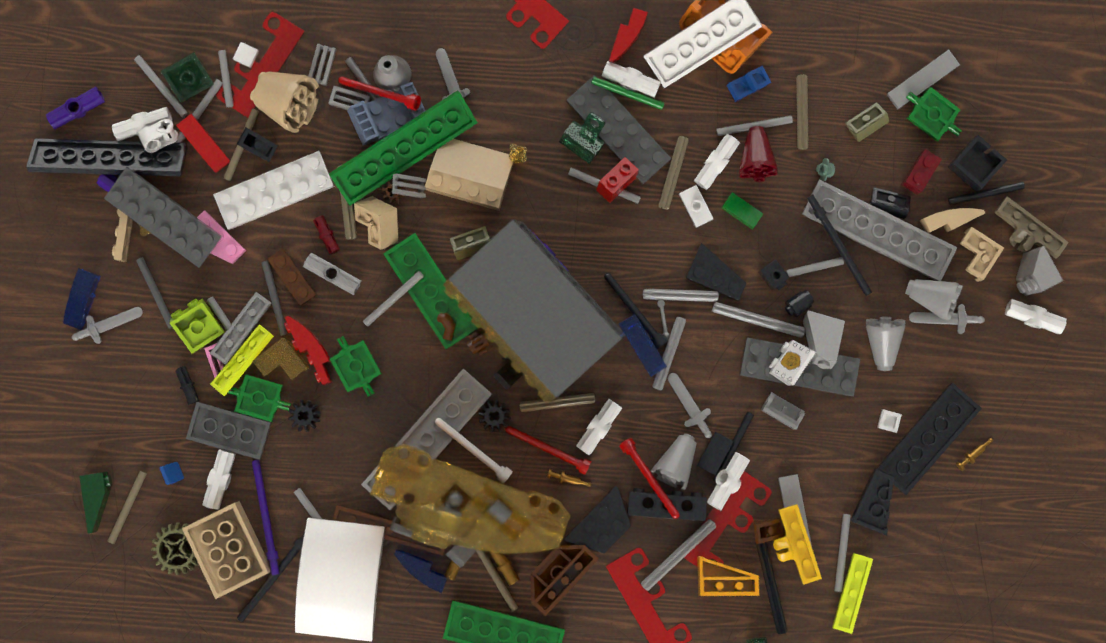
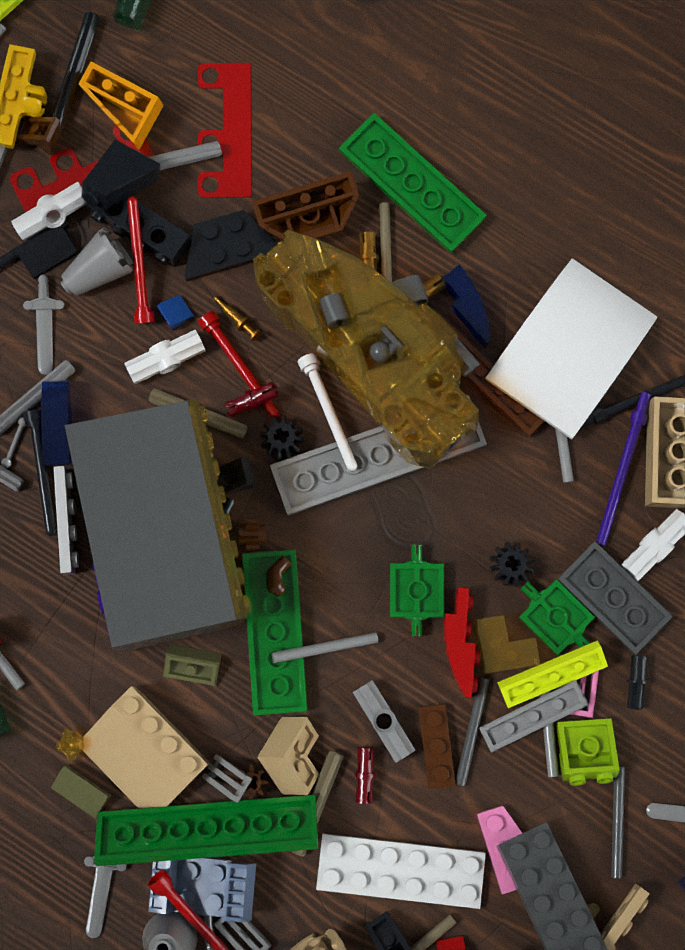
camera: 155 degrees left, 5 degrees down
(495, 129) = (80, 791): none -> olive slope
(527, 429) = (251, 399): none -> dark red pin
(596, 281) = (66, 531): none -> white plate
(610, 460) = (175, 311): none -> blue slope
(695, 527) = (118, 176): none -> black slope

